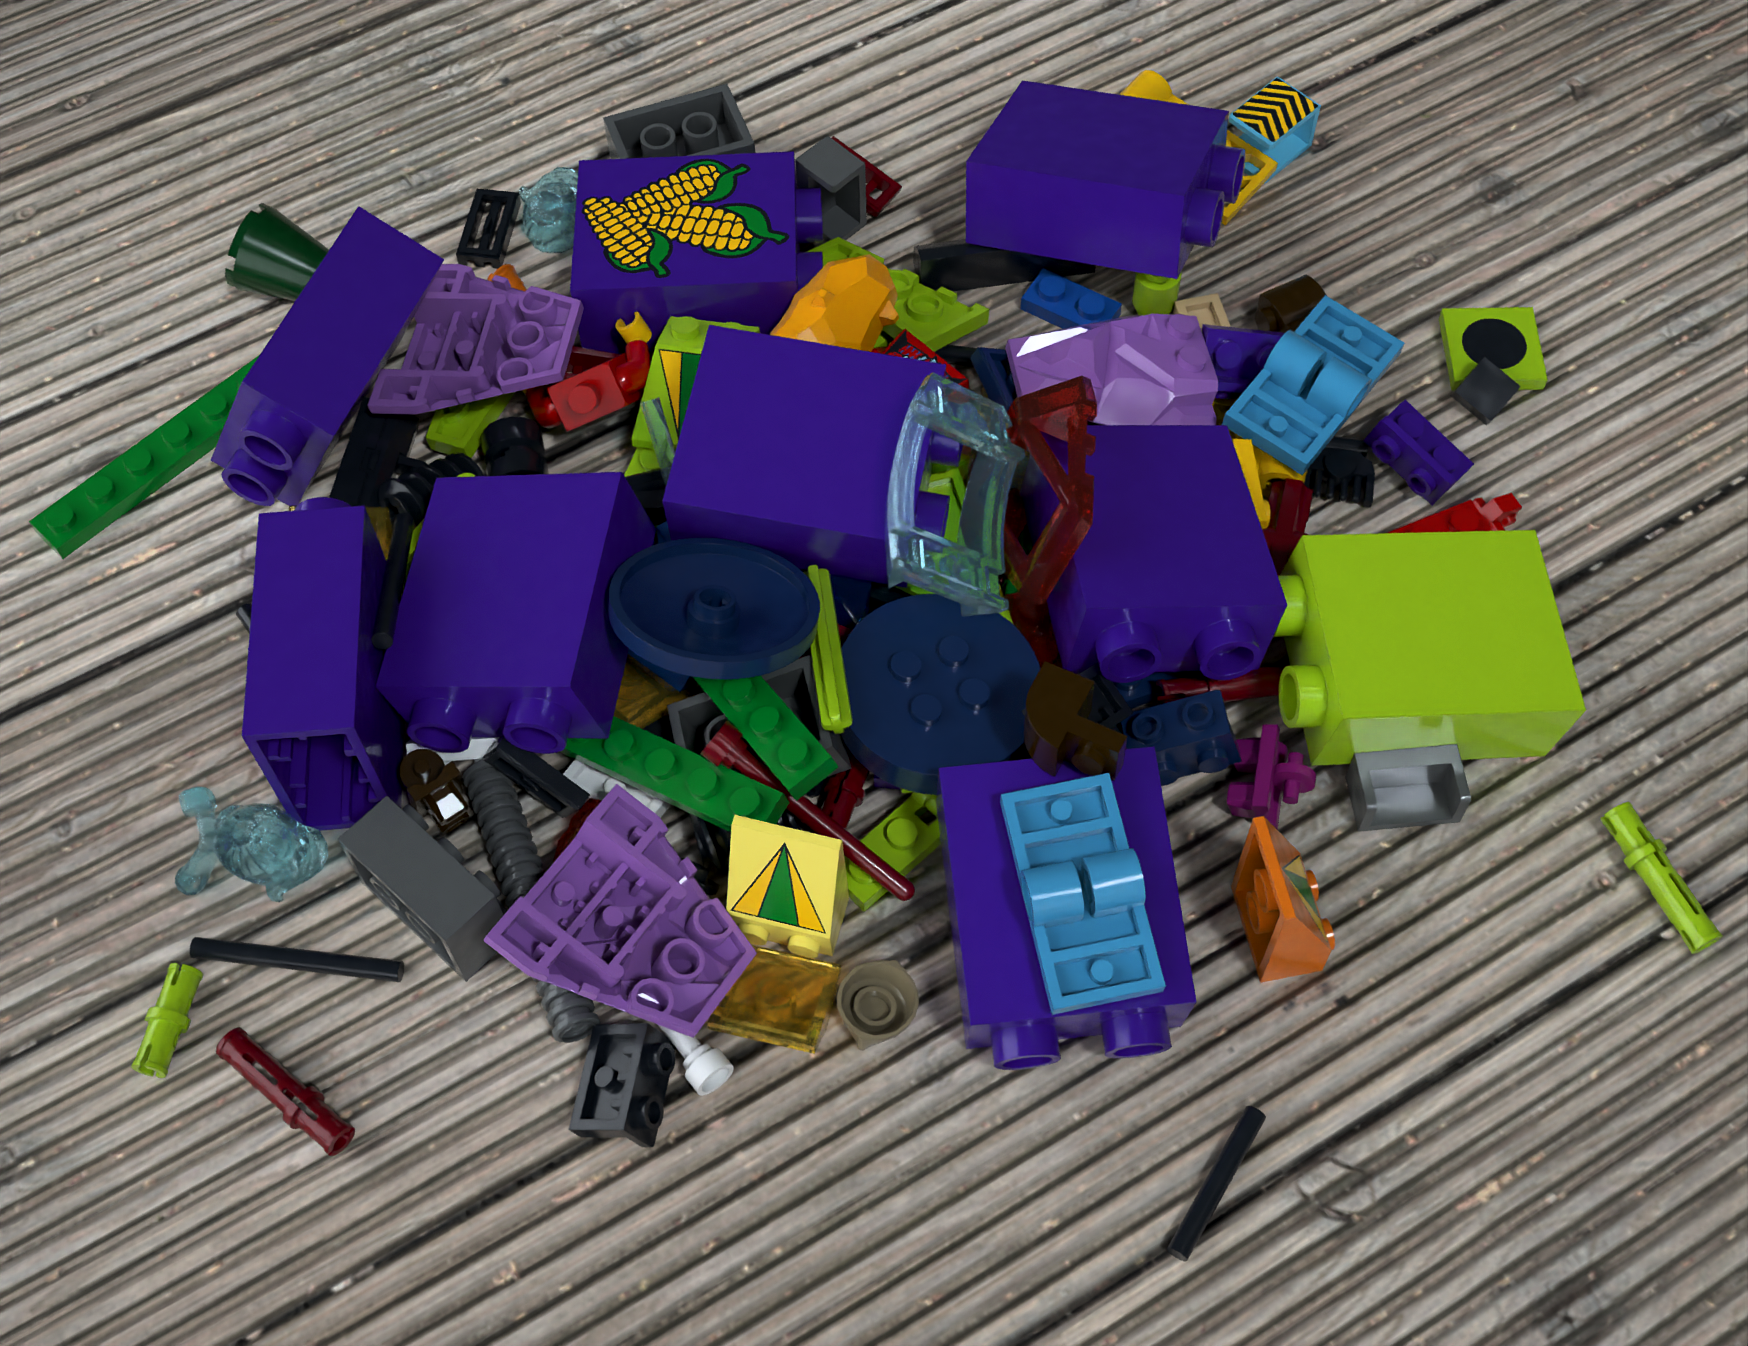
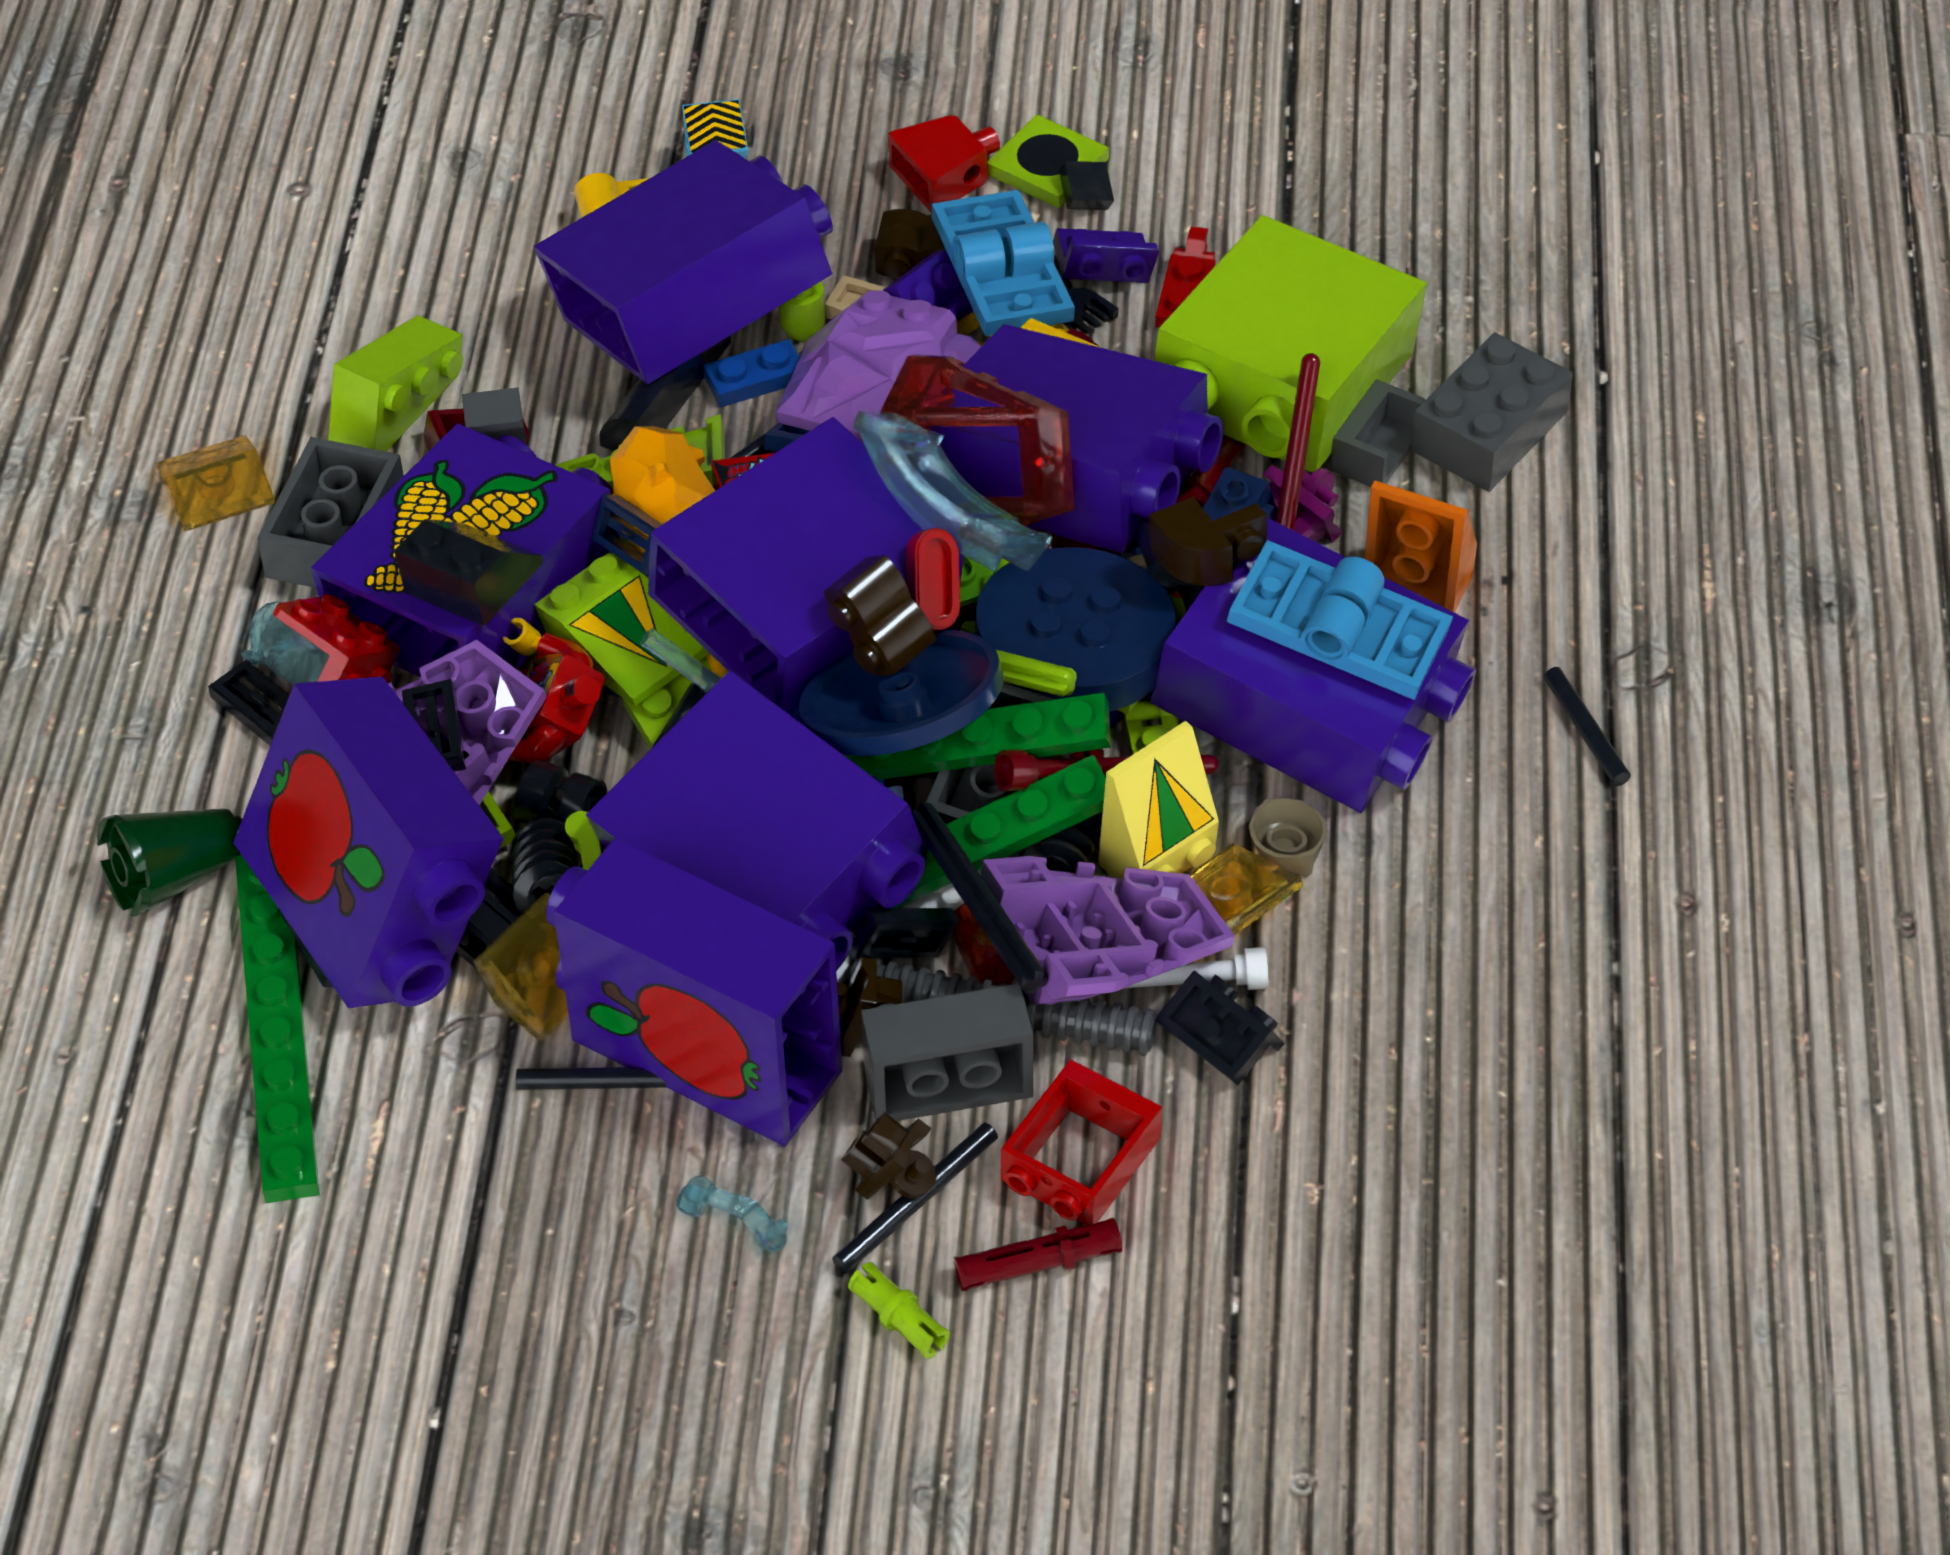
camera: 55 degrees left, 10 degrees down
(268, 847) = (792, 1156): clear light blue hair -> none
(296, 916) = (886, 1157): none -> dark brown hips
(356, 1029) = (1101, 1103): none -> red window
(476, 334) = (428, 692): none -> black tile
(533, 229) = (354, 645): none -> red bracket
(562, 807) = (979, 899): none -> black axle
(631, 242) = (463, 568): none -> black slope
(674, 66) = (216, 482): none -> clear yellow slope
(756, 535) = (879, 616): none -> dark brown brick
(774, 310) = (634, 517): none -> dark blue tile
(841, 549) = (934, 576): none -> red tile
(843, 98) = (392, 382): none -> lime wedge
(1184, 801) = (1298, 440): none -> dark red piece
(1413, 278) = (941, 158): none -> red torso
(1520, 863) = (1491, 411): none -> dark grey brick
(1666, 885) = (1573, 350): lime pin -> none

